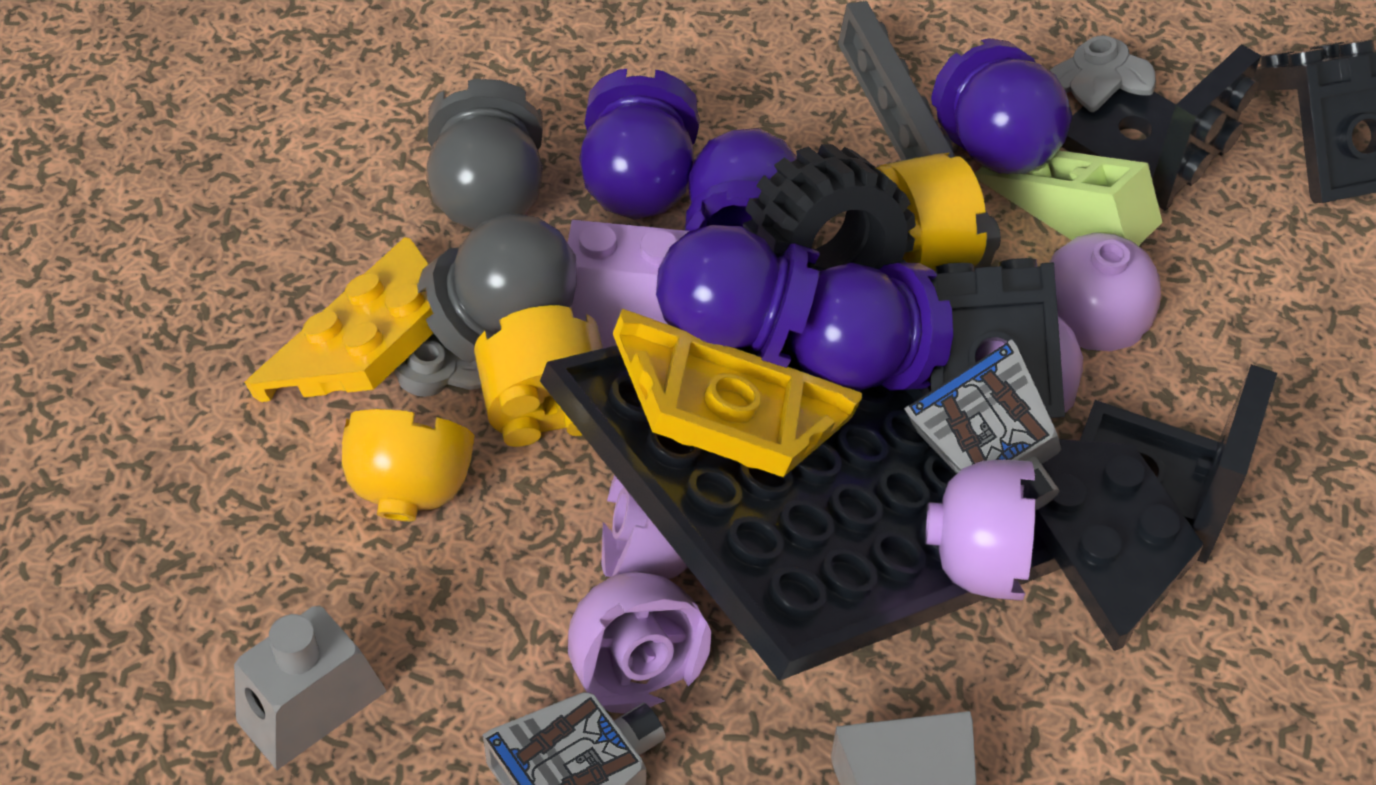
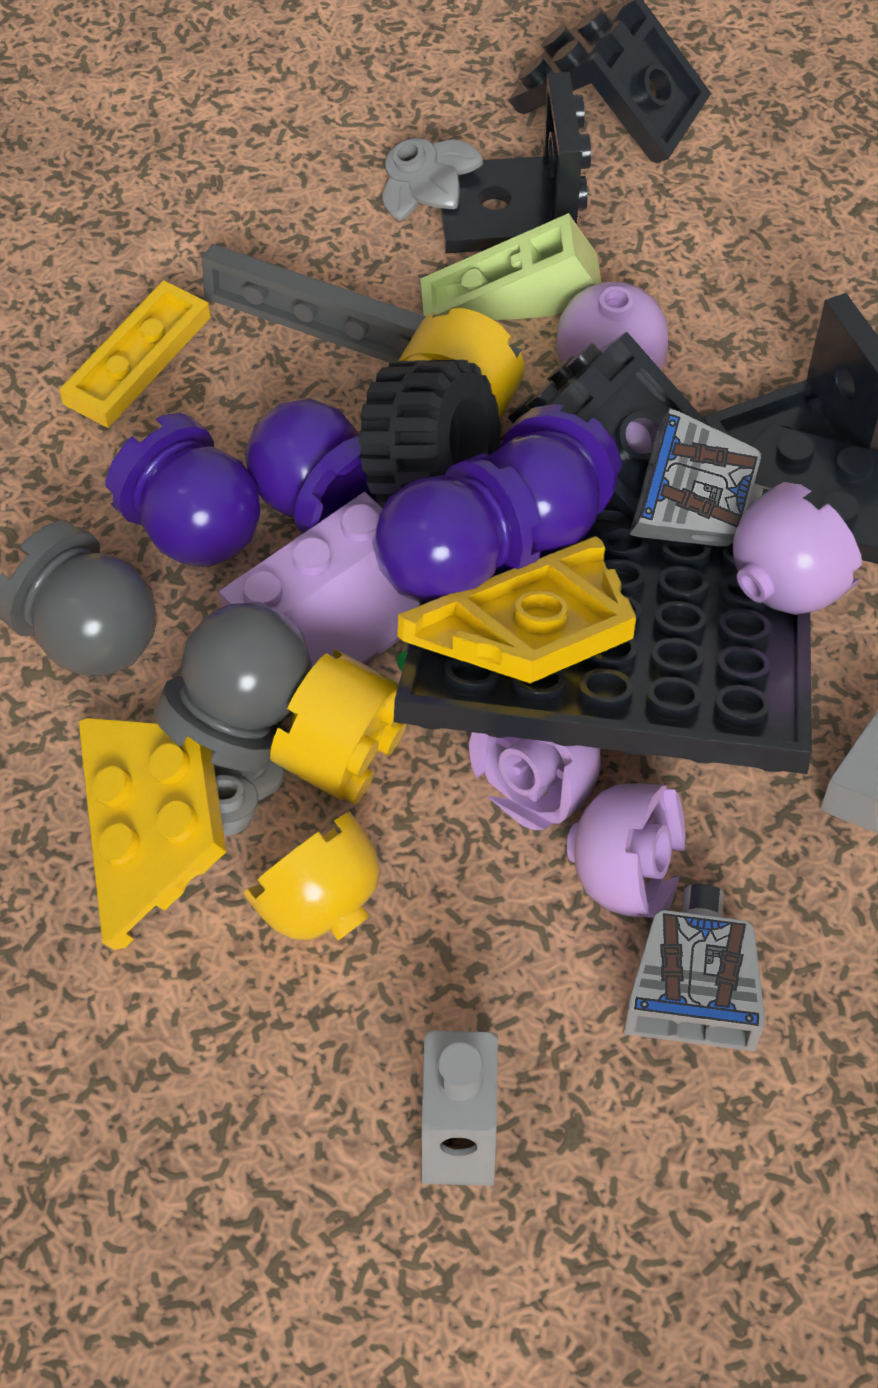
camera: 45 degrees left, 5 degrees up
(738, 39) = (135, 354): none -> yellow plate
(1002, 107) = (418, 250): dark purple tile -> none

